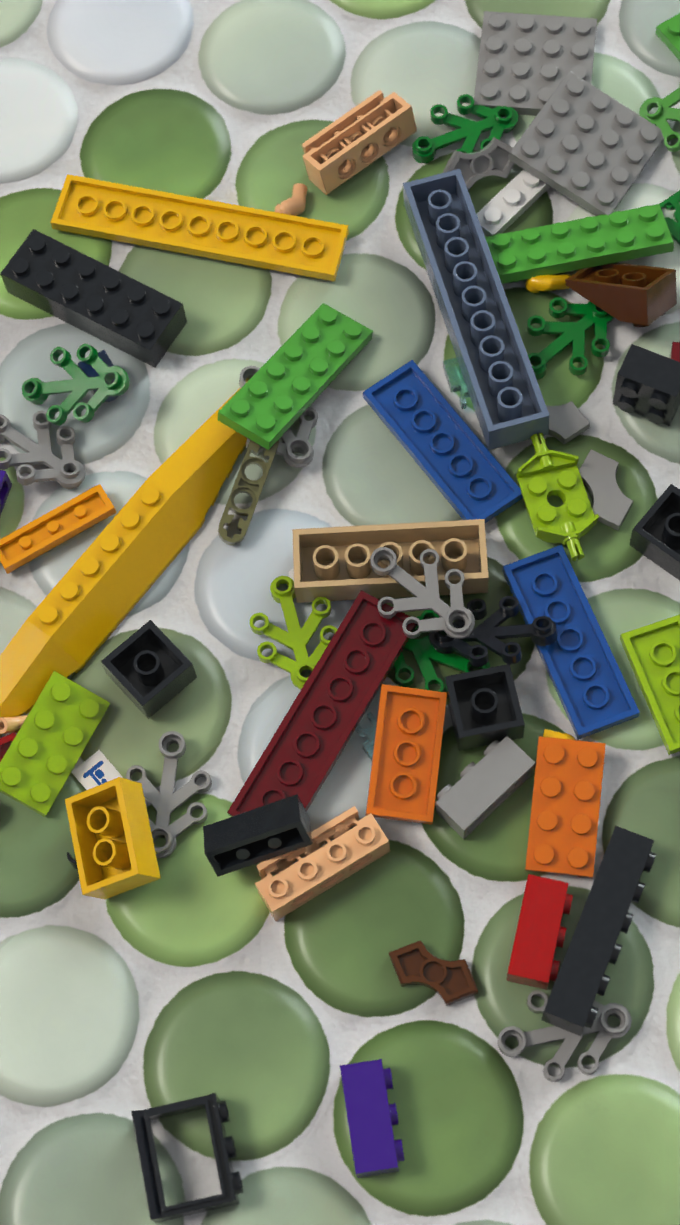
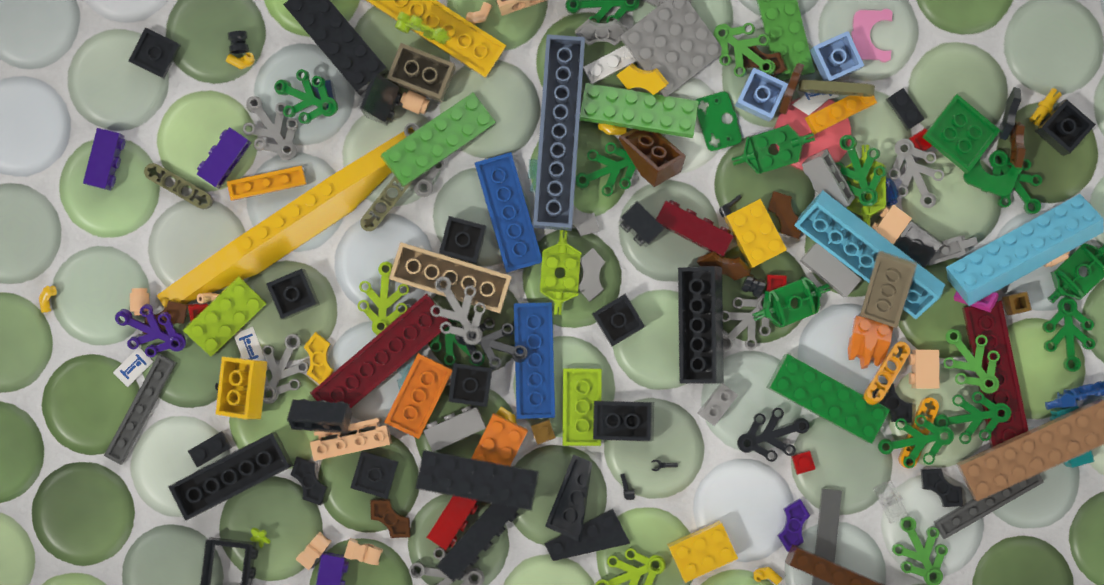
camera: 10 degrees right, 20 degrees up
(89, 966) = (209, 449): none -> black plate
(139, 991) = (230, 476): none -> black brick
(189, 348) = (380, 99): none -> black slope
(216, 746) = (317, 349): none -> yellow tile
(221, 1081) = (258, 536): none -> lime plant
(237, 298) = (421, 72): none -> dark tan brick
(241, 343) = (414, 102): none -> light nougat brick
(247, 216) = (405, 24): none -> lime plant
(287, 971) = (312, 488): none -> black tile
(322, 1070) = (313, 551): none -> light nougat leg
(380, 908) = (374, 474): none -> black plate
(387, 494) = (463, 240): none -> black brick
(410, 1041) = (363, 553): none -> light nougat leg
(558, 842) = (477, 480): none -> black brick
(578, 197) = (649, 80): none -> yellow tile
(629, 740) = (543, 431): none -> pearl gold brick

